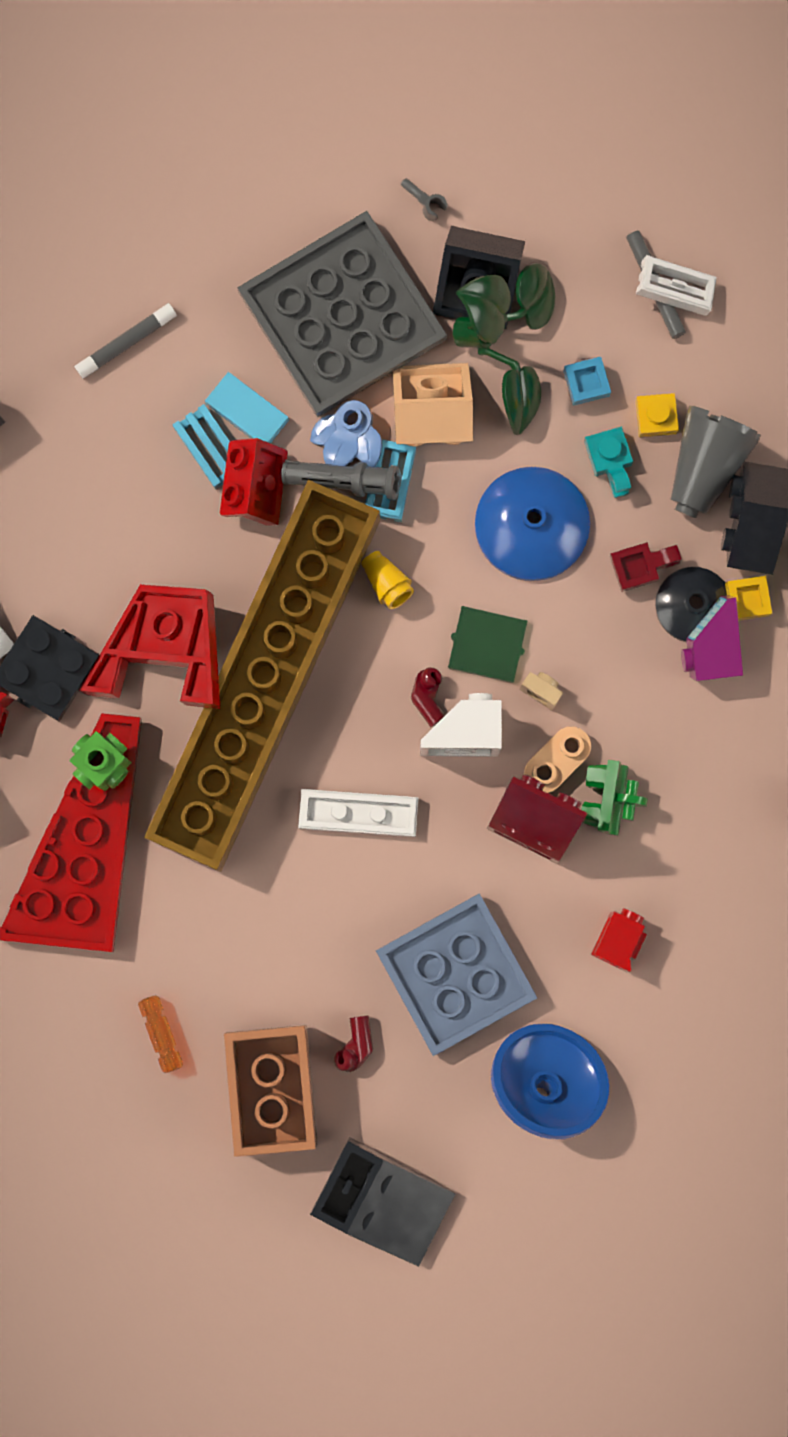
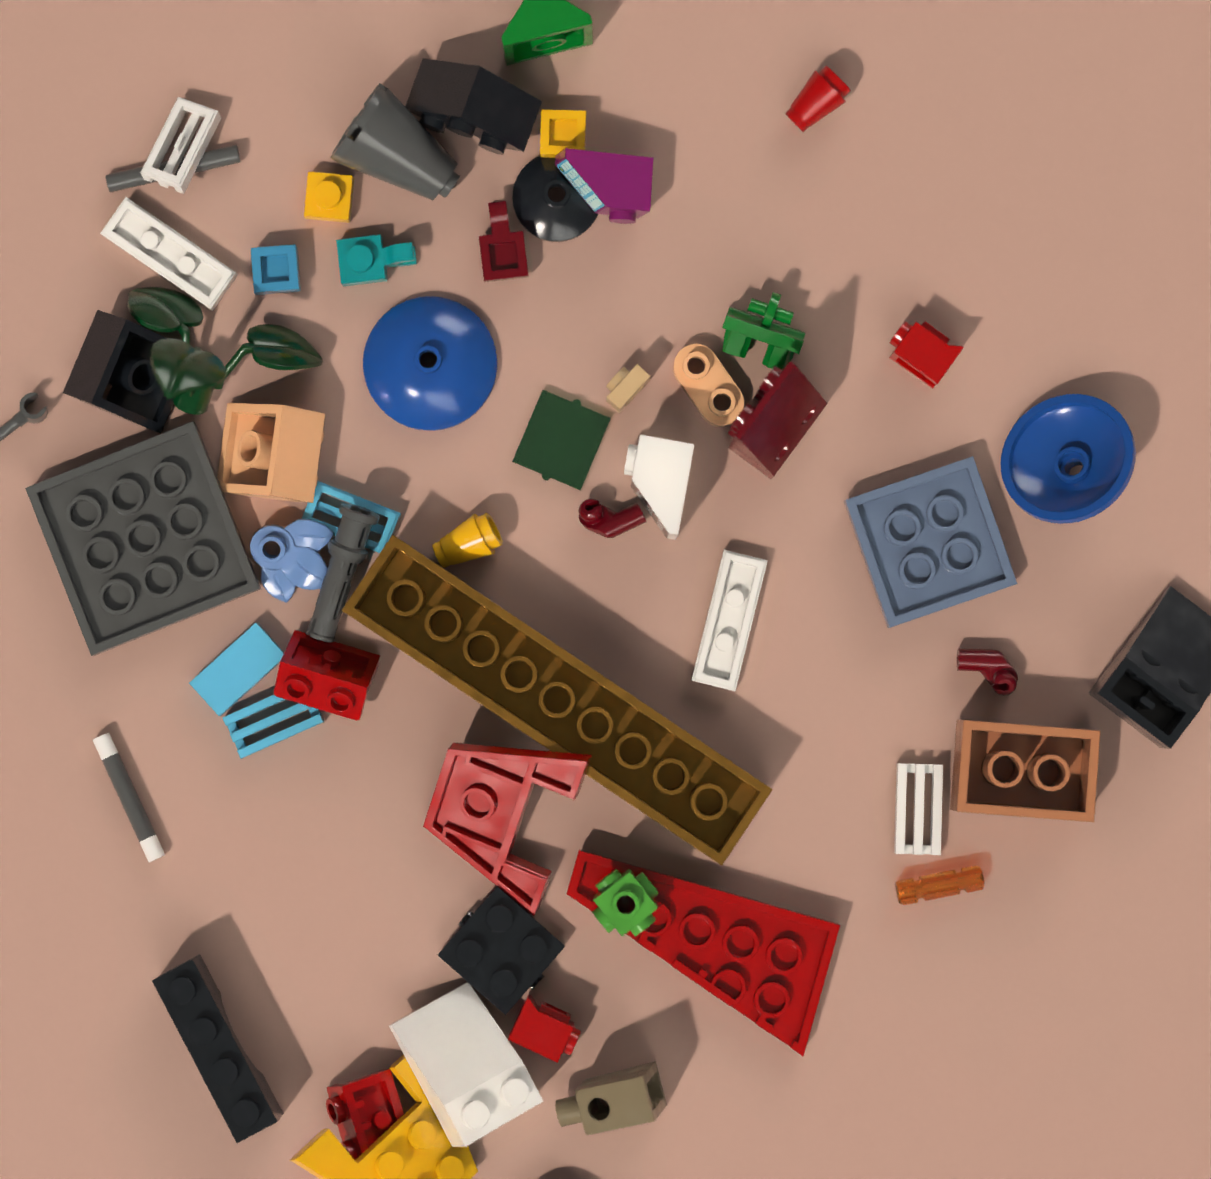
camera: 85 degrees left, 5 degrees up
(190, 1009) = (917, 847): none -> white tile
(583, 294) = (169, 253): none -> white tile

